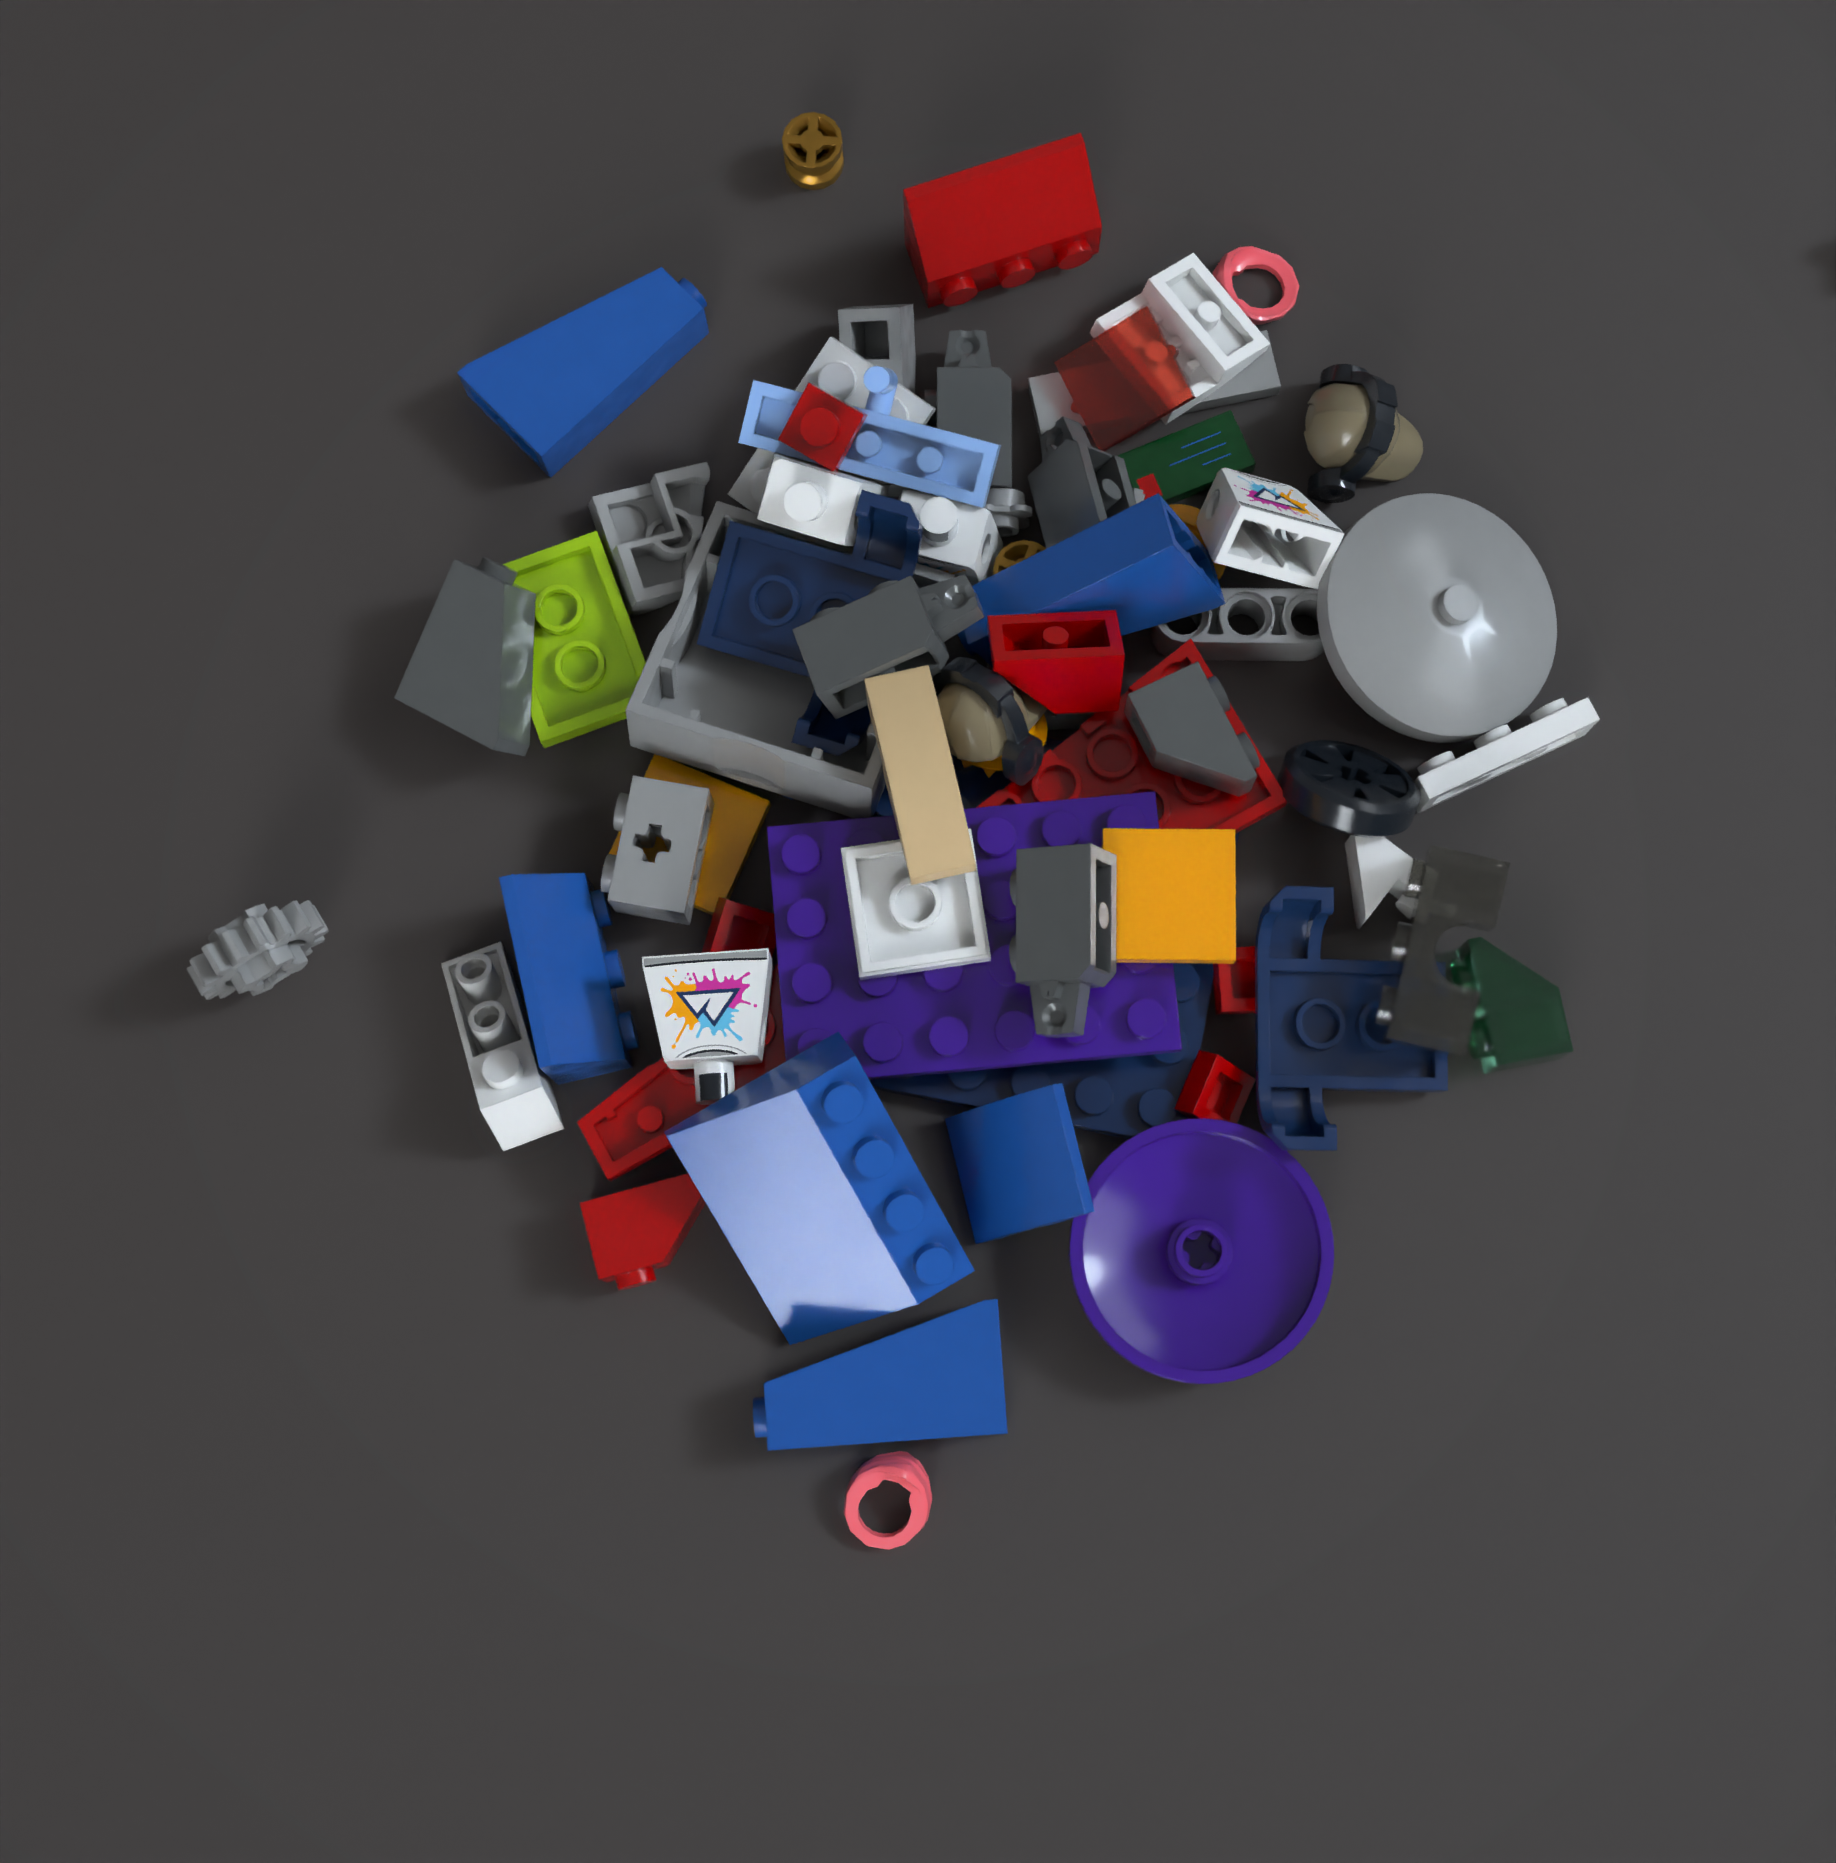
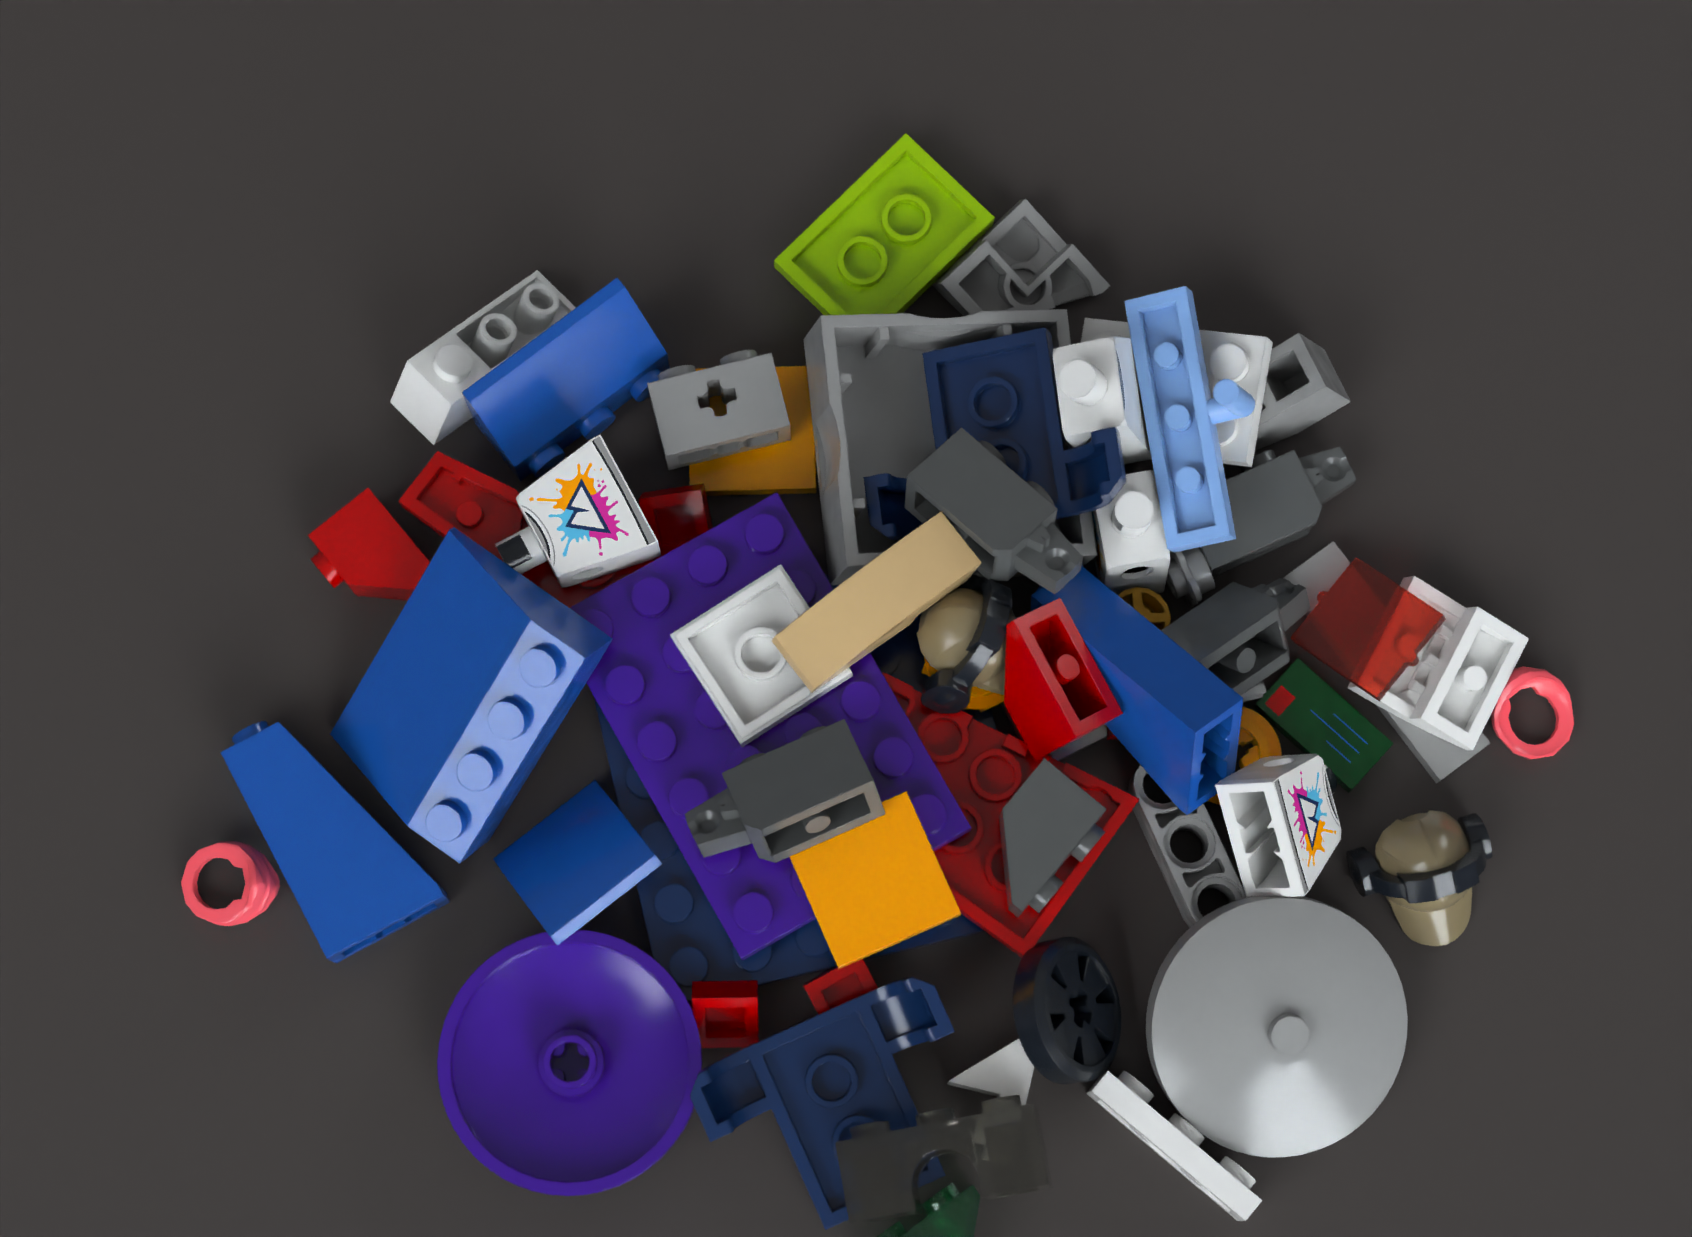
camera: 60 degrees right, 0 degrees up
(257, 949) = (468, 104): light grey gear -> none
(477, 657) = (820, 168): dark grey slope -> none
(586, 367) = (1147, 137): blue slope -> none
(811, 135) = (1468, 232): pearl gold wheel -> none
(822, 427) = (1169, 368): red plate -> none
(1002, 222) = (1466, 446): red slope -> none

